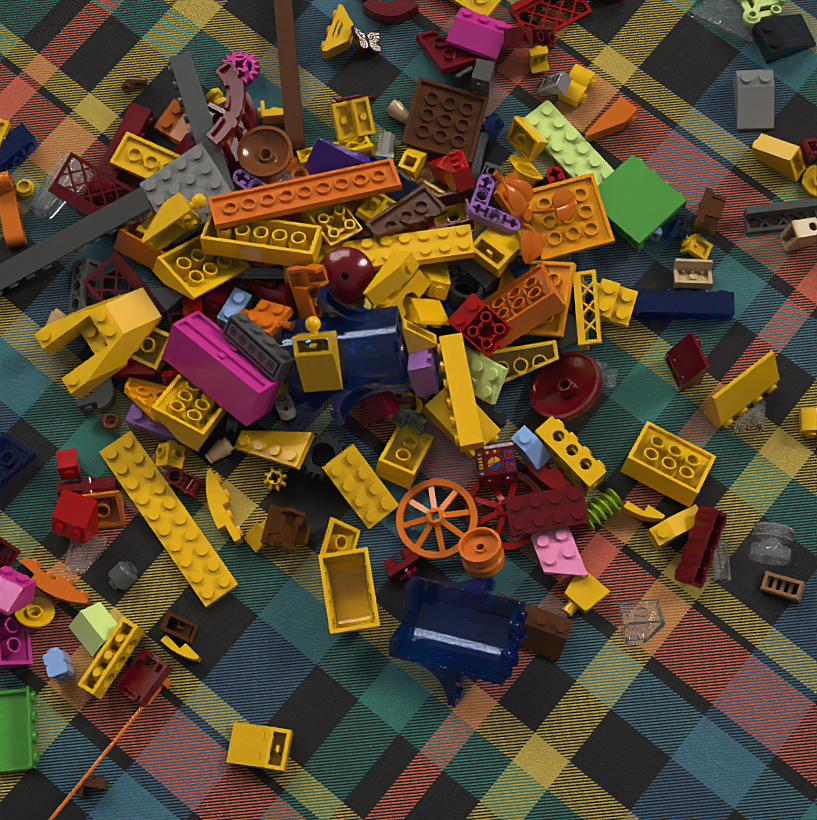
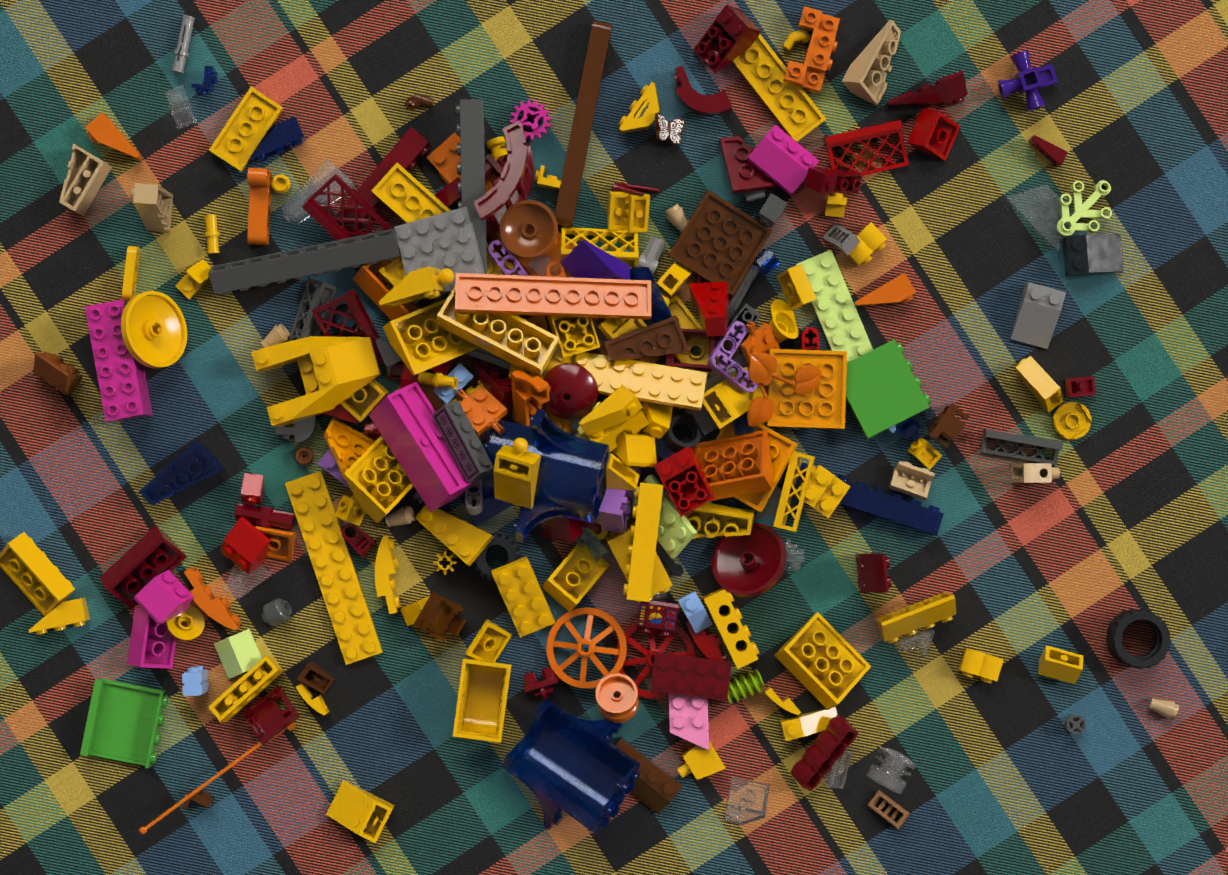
camera: 10 degrees right, 15 degrees up
(219, 304) = (438, 380): none -> yellow pin

